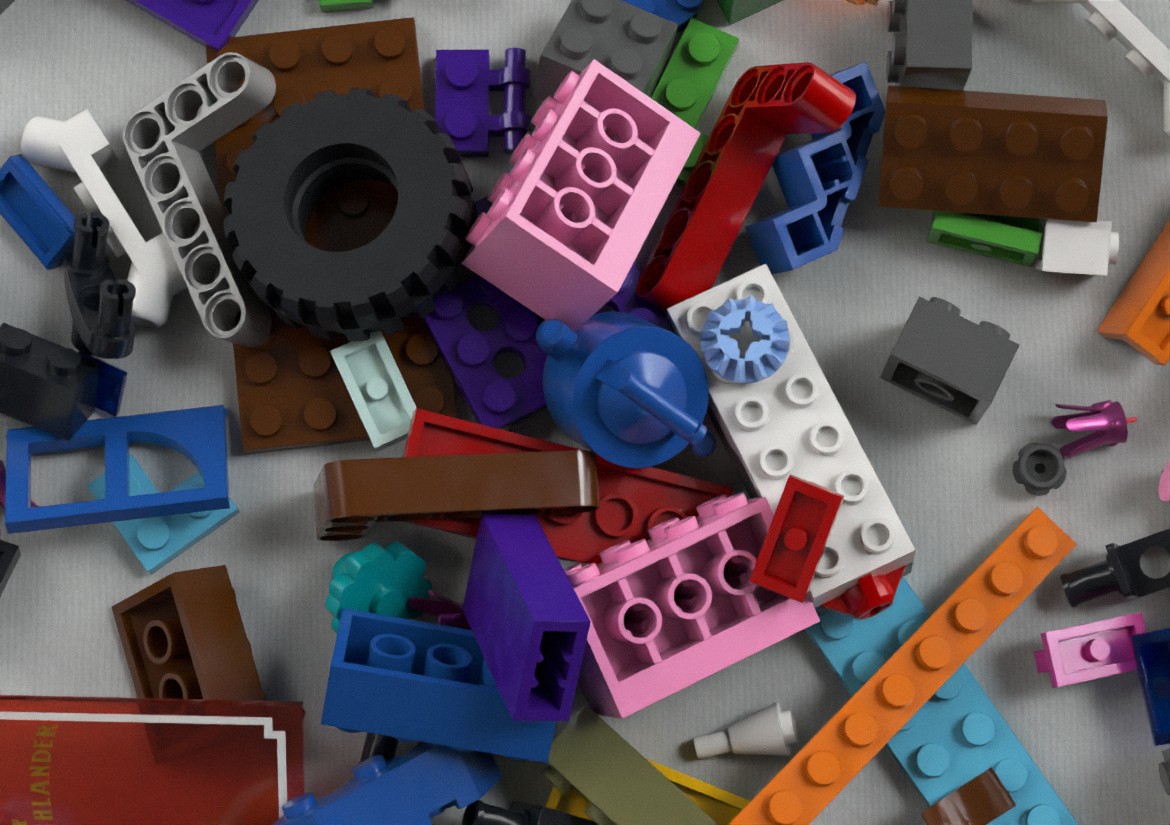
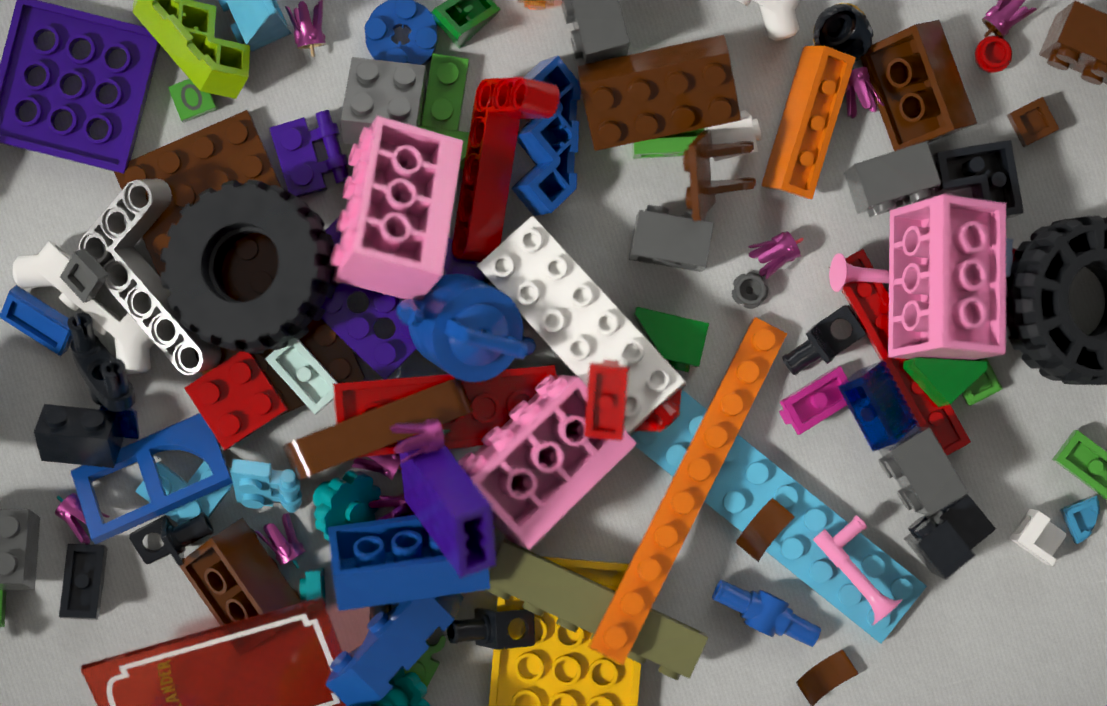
camera: 20 degrees left, 10 degrees up
(119, 162) = (84, 275): none -> dark grey plate
(120, 564) = (174, 538): none -> black bracket
(268, 527) = (260, 486): none -> medium azure plate
(270, 630) = (284, 549): none -> flat silver piece
(271, 397) = (236, 399): none -> red plate
(296, 687) = (313, 584): none -> teal plate
(458, 550) = (383, 464): none -> flat silver piece
(519, 514) = (430, 437): none -> flat silver piece
(759, 734) = (621, 517): white cone -> none
(762, 357) = (549, 283): light blue gear -> none
(919, 495) = (674, 337): none -> green slope
(1020, 251) = (696, 161): none -> reddish brown plate

